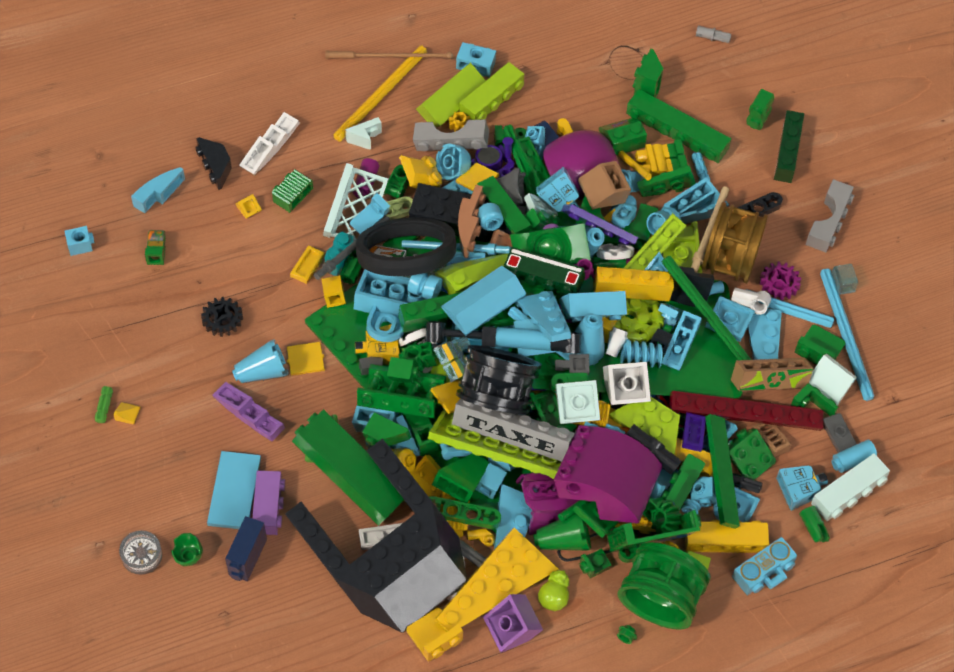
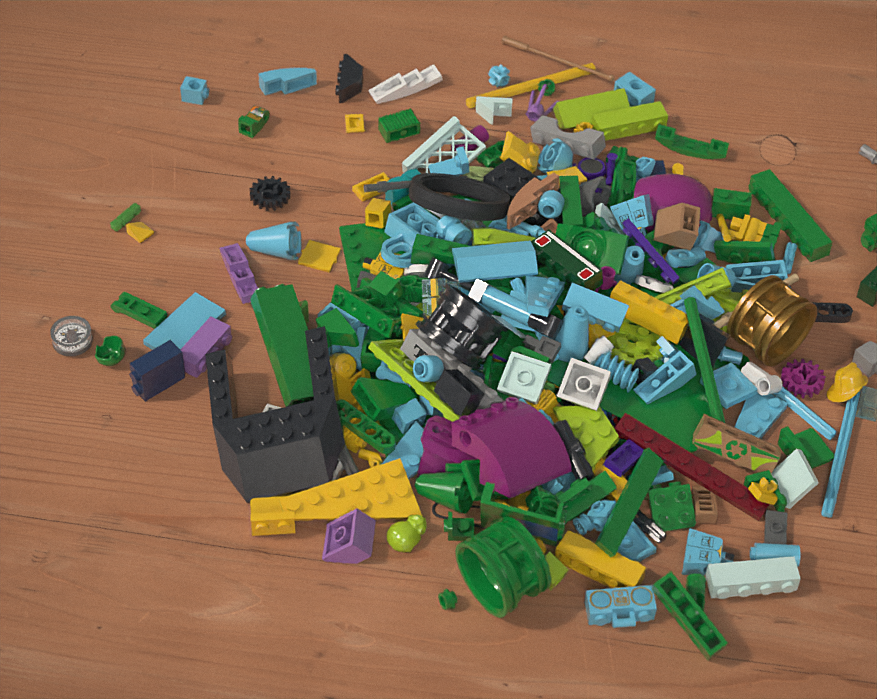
camera: 30 degrees right, 10 degrees down
(182, 494) = (139, 310): none -> green plate
(348, 96) = (499, 76): none -> medium azure gear
(399, 86) = (550, 85): none -> green plate
(403, 119) = (536, 110): none -> medium lavender plant
(496, 435) = (428, 368): none -> medium azure head
(537, 359) = (500, 319): none -> white sticker
(538, 446) = (458, 392): none -> black brick
(557, 93) = (691, 147): none -> green slope
(649, 74) = (785, 161): green slope -> none
(680, 255) = (708, 307): none -> medium azure slope
(815, 404) = (764, 491): none -> yellow tile
(817, 270) = (847, 383): none -> yellow piece
(828, 549) = (689, 615): none -> green brick

